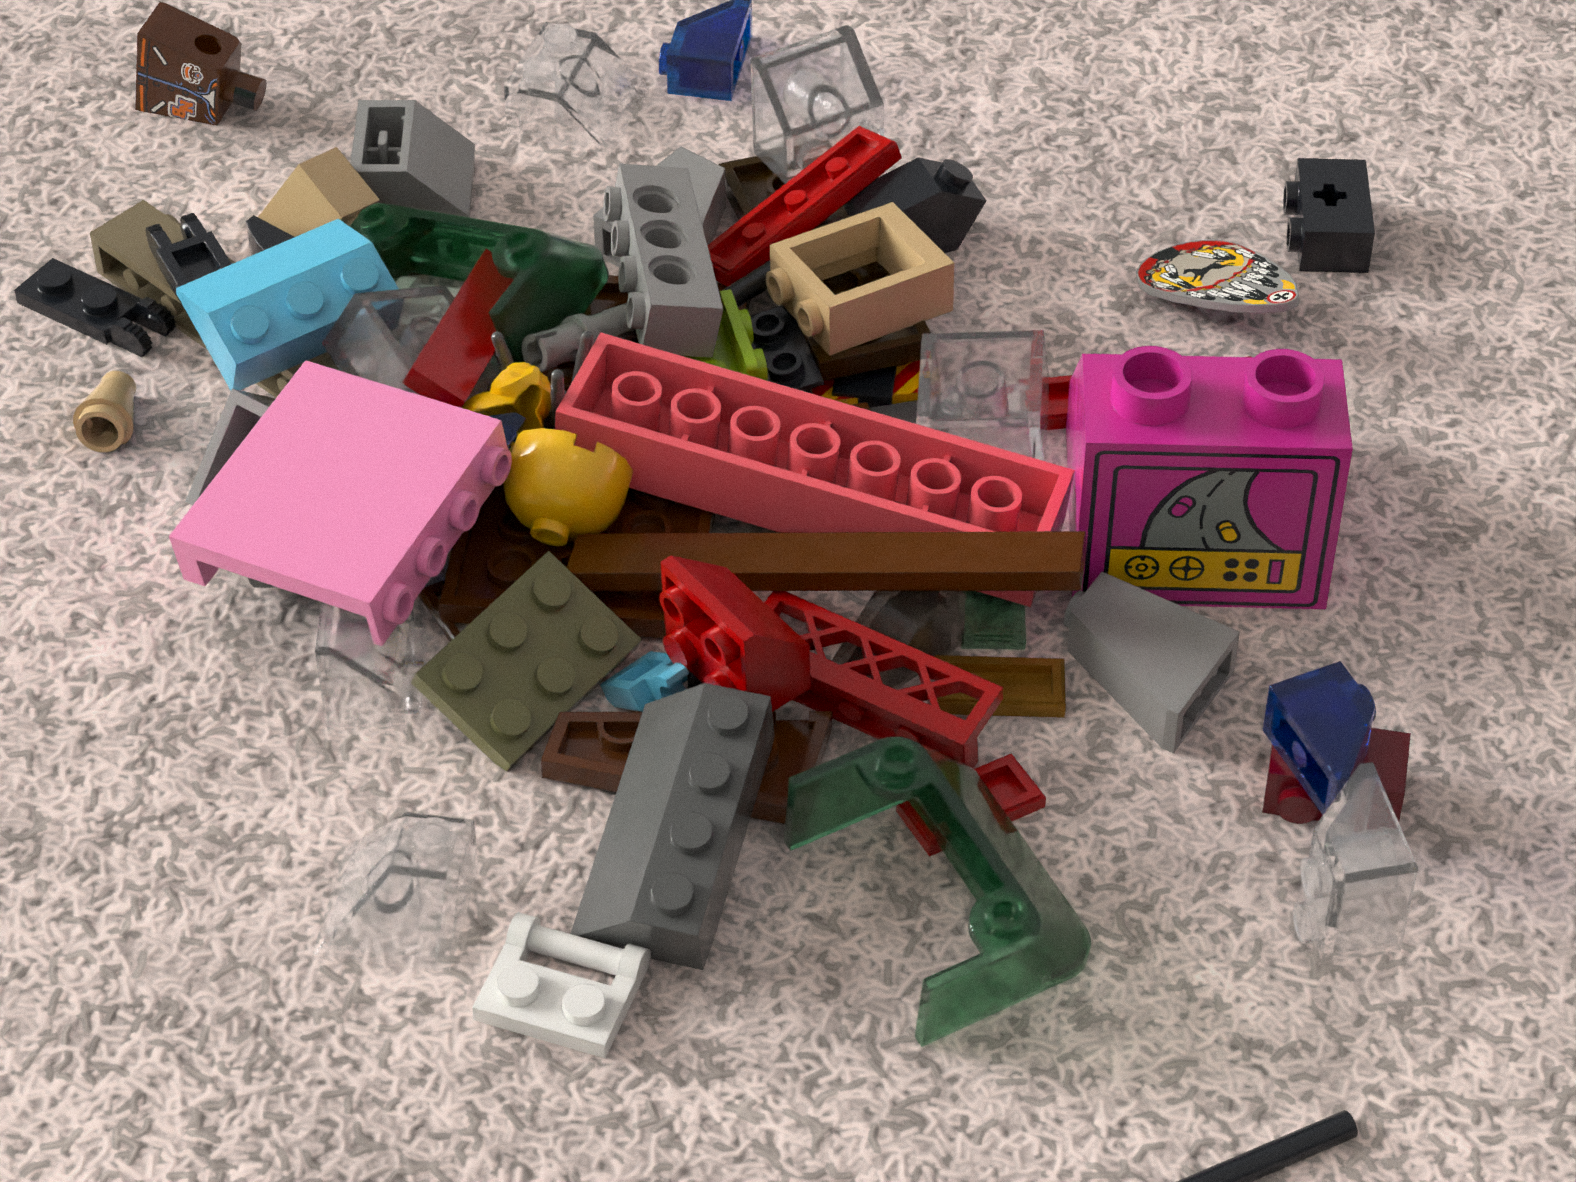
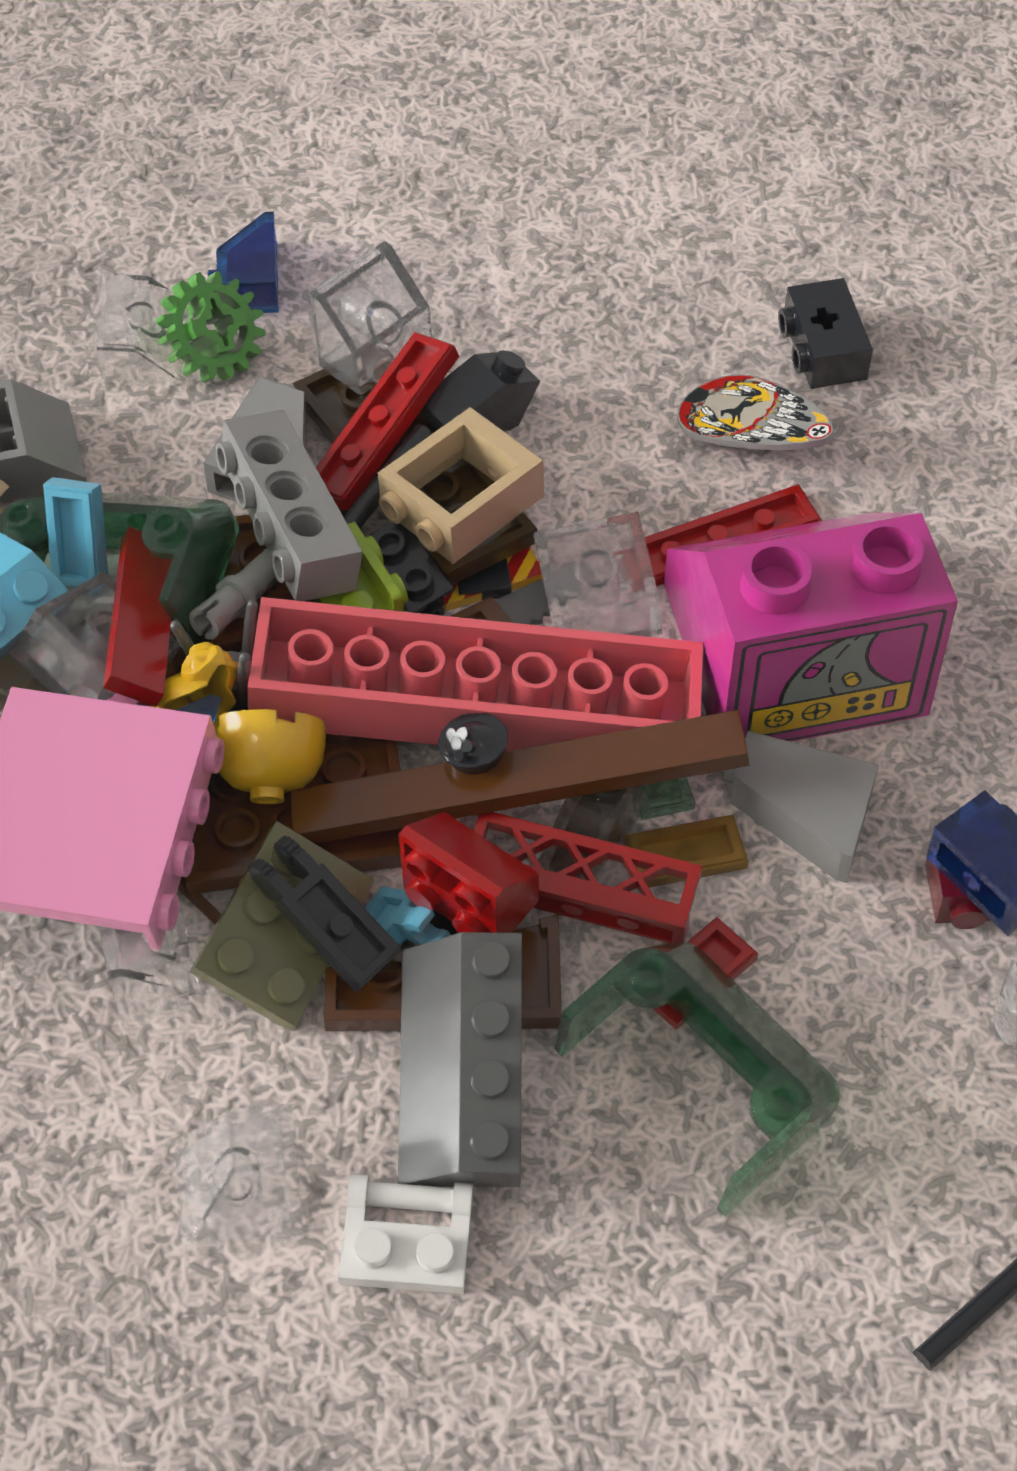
camera: 15 degrees left, 10 degrees up
(429, 236) = (75, 530): none -> medium azure tile
(572, 651) = (326, 914): none -> black hinge
(632, 111) = (207, 308): none -> bright green gear
(785, 516) = (473, 742): none -> black hat

